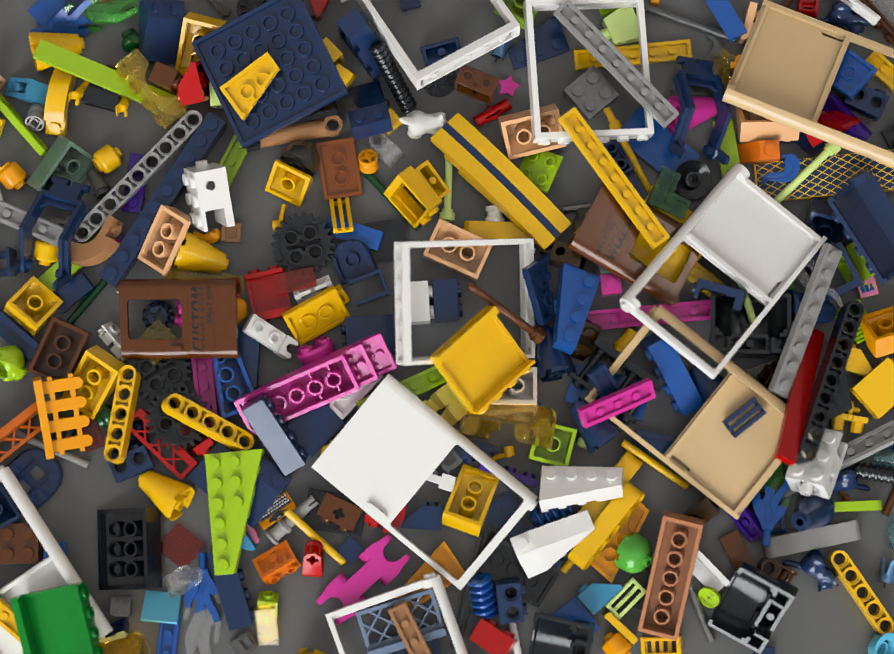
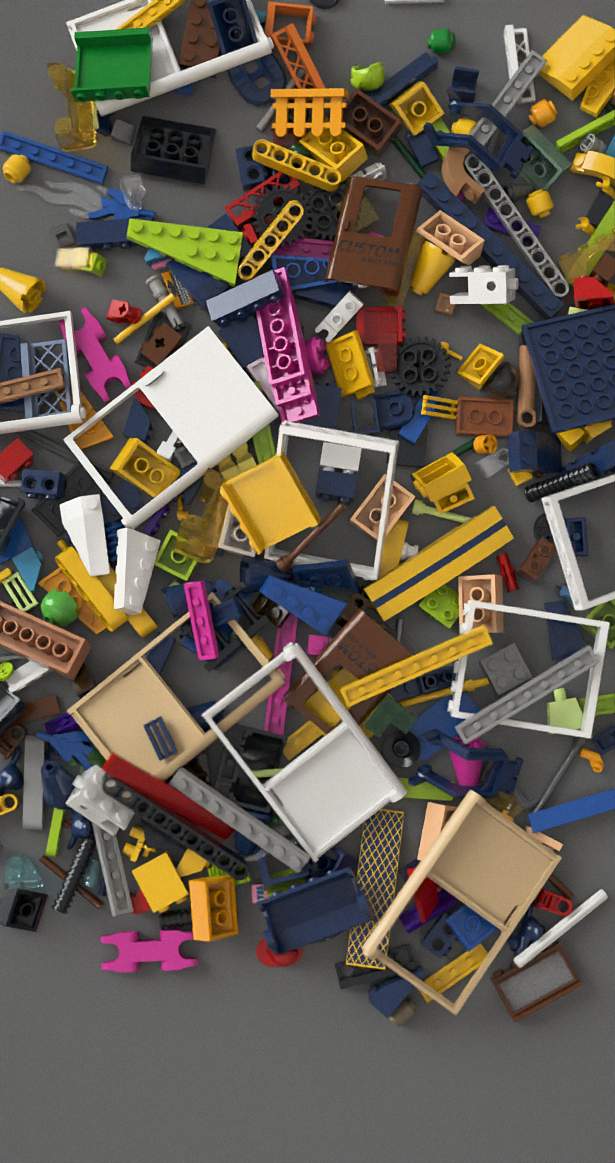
camera: 110 degrees right, 0 degrees up
(154, 307) = (384, 228): dark blue gear -> none
(160, 607) = (112, 166): medium azure piece -> none
(166, 493) = (215, 192): yellow cone -> none
(181, 546) = (165, 197): clear red piece -> none
(210, 237) = (445, 282): light orange arm -> none
(241, 310) = (370, 296): light orange arm -> none
(249, 85) = (580, 343): yellow wing -> none
(276, 563) = (129, 279): orange bracket -> none
(350, 550) = (125, 350): dark blue tile -> none
(422, 123) = (511, 501): white animal -> none
(483, 595) = (53, 460): blue piece -> none
(508, 86) = (530, 593): dark pink piece -> none
(655, 464) = (154, 634): yellow bar -> none
(657, 53) = (532, 738): yellow tile -> none
(672, 373) = (217, 685): blue wedge -> none
(738, 294) = (279, 762): dark blue panel -> none
(759, 152) = (414, 818): orange slope -> none
(791, 170) = (389, 845): blue piece -> none
(829, 150) = (383, 857): yellowish green piece -> none

